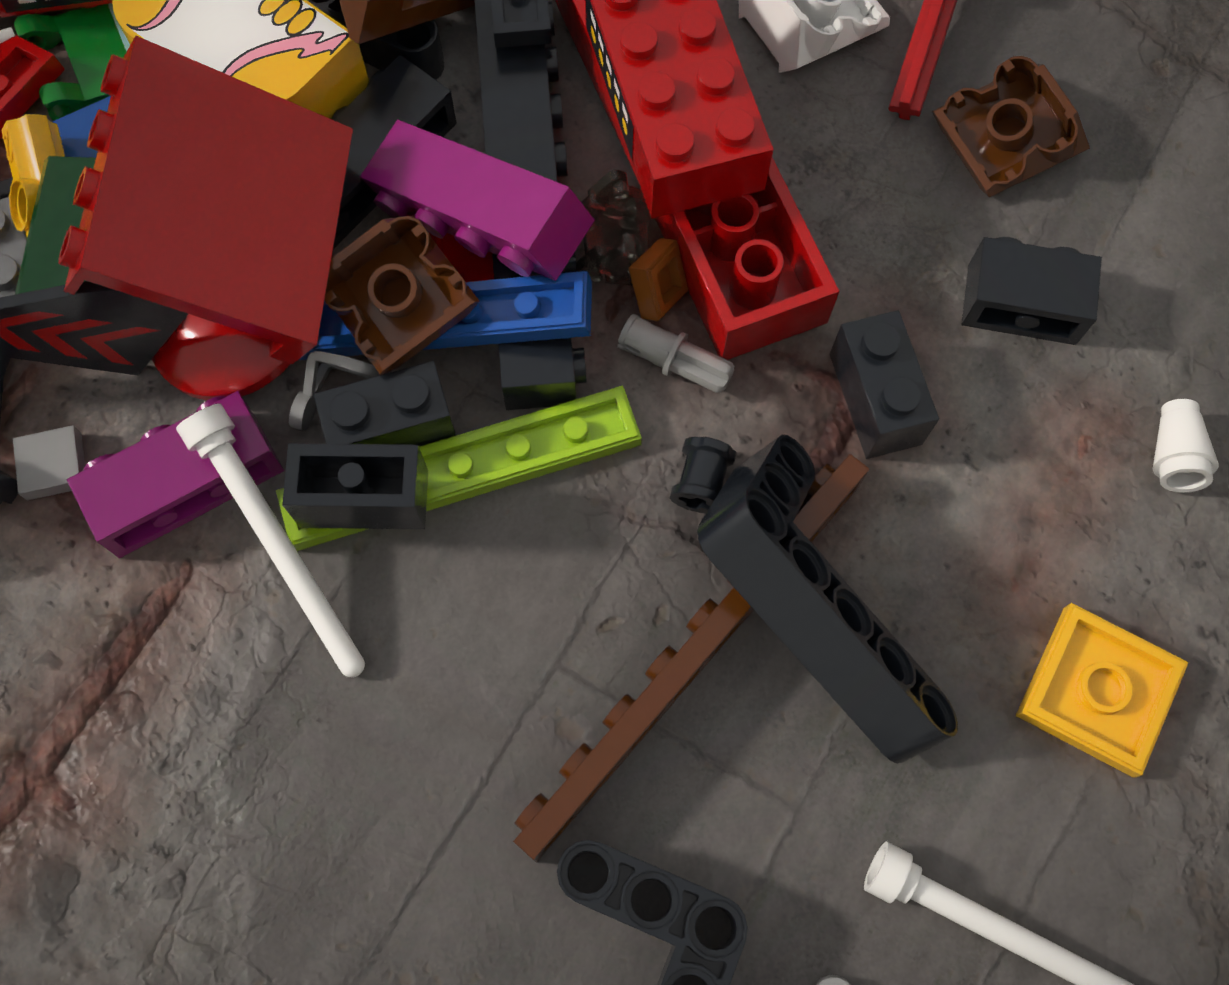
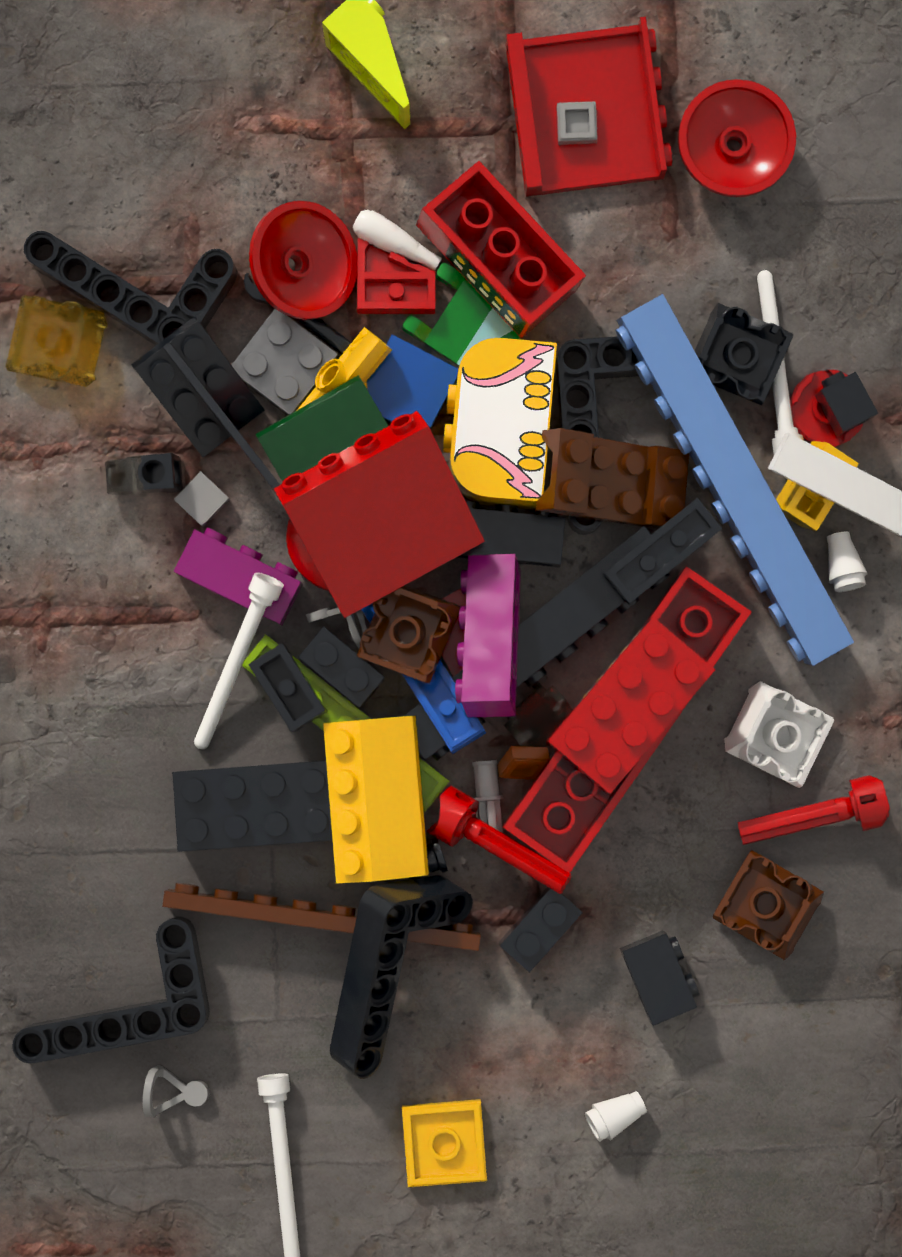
camera: 55 degrees right, 15 degrees up
(483, 640) = (252, 806): none -> black brick
(582, 467) = (375, 799): none -> yellow slope
(684, 392) = (459, 820): none -> red piece

